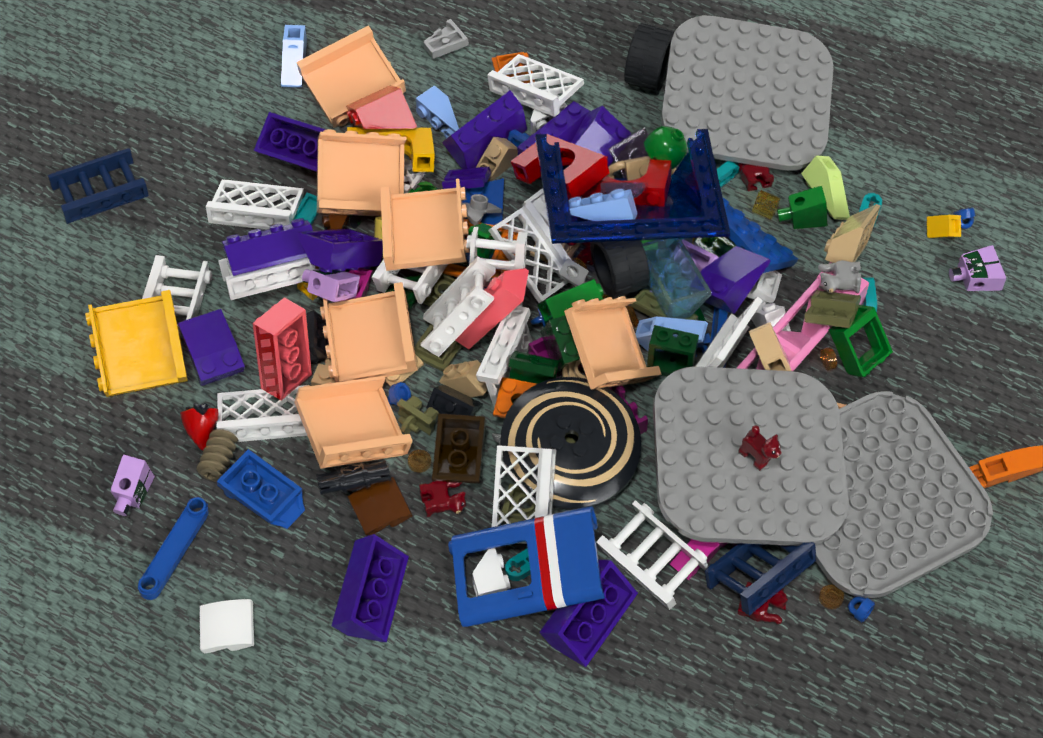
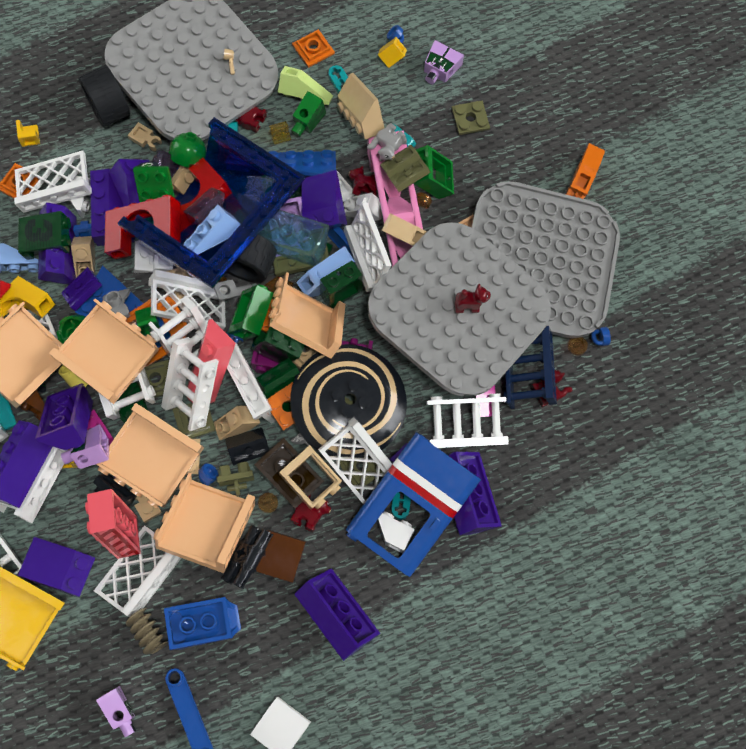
camera: 50 degrees left, 15 degrees up
(199, 423) = (109, 623): red hat -> none
(474, 442) = (308, 453): none -> tan window
(483, 109) = (43, 233): none -> dark green panel
(559, 41) = (28, 134): none -> yellow panel
(607, 139) = (152, 181): none -> green plate
(649, 115) = (142, 135): none -> tan plate
(786, 107) = (229, 55): none -> tan hand
(789, 295) = (361, 182): none -> dark red animal
(880, 176) = (313, 56): none -> orange piece
(953, 324) = (473, 109): none -> olive piece

